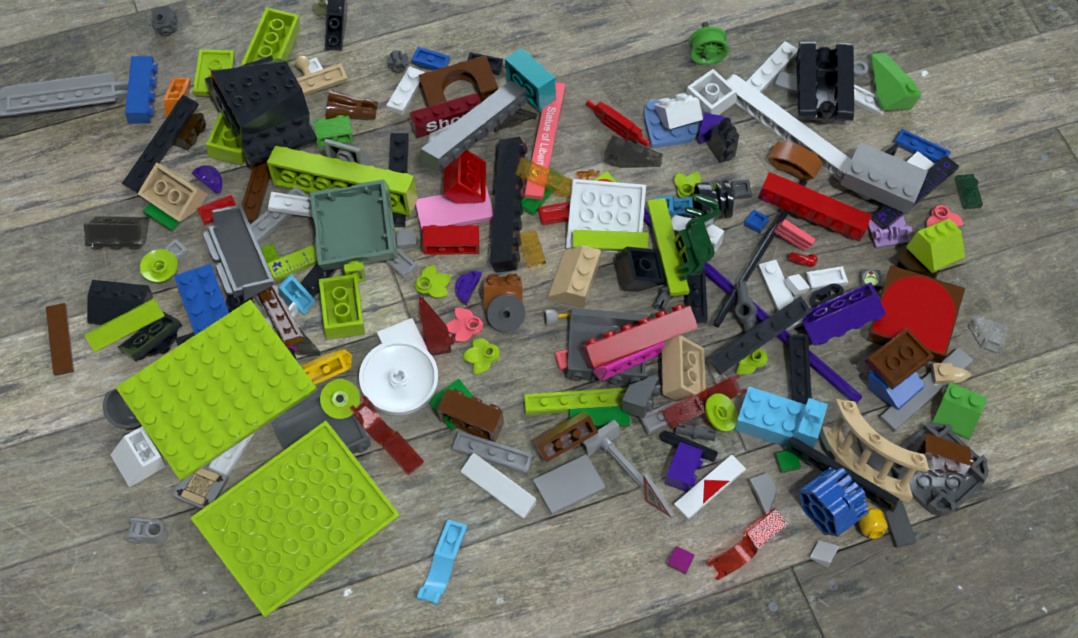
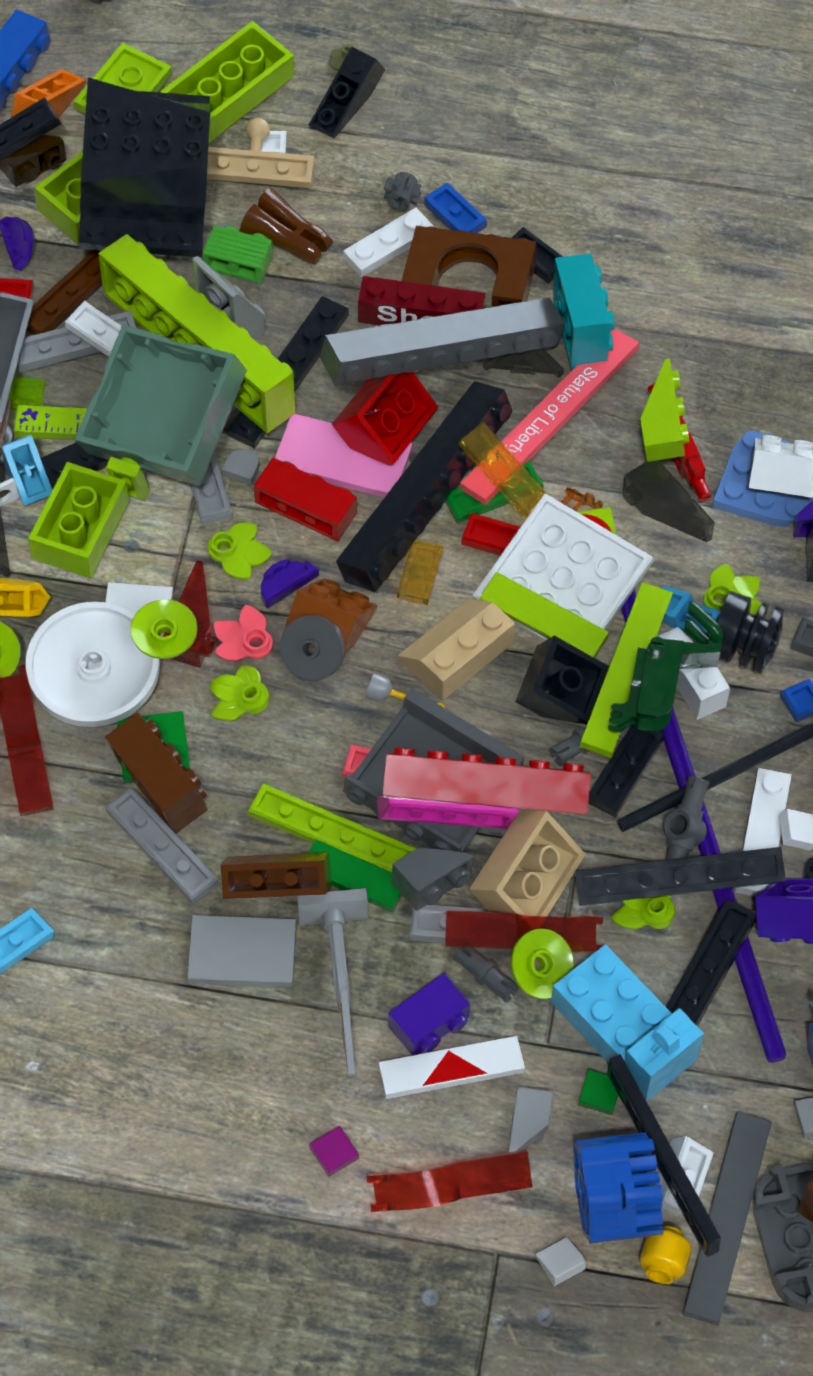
camera: 30 degrees right, 0 degrees up
(428, 333) = (163, 617): none -> lime dish
(499, 486) = (137, 899): white slope -> none
(610, 117) = (660, 419): none -> lime slope
(674, 440) = (479, 1010): black axle -> none
(845, 456) = (718, 1094): tan fence -> none

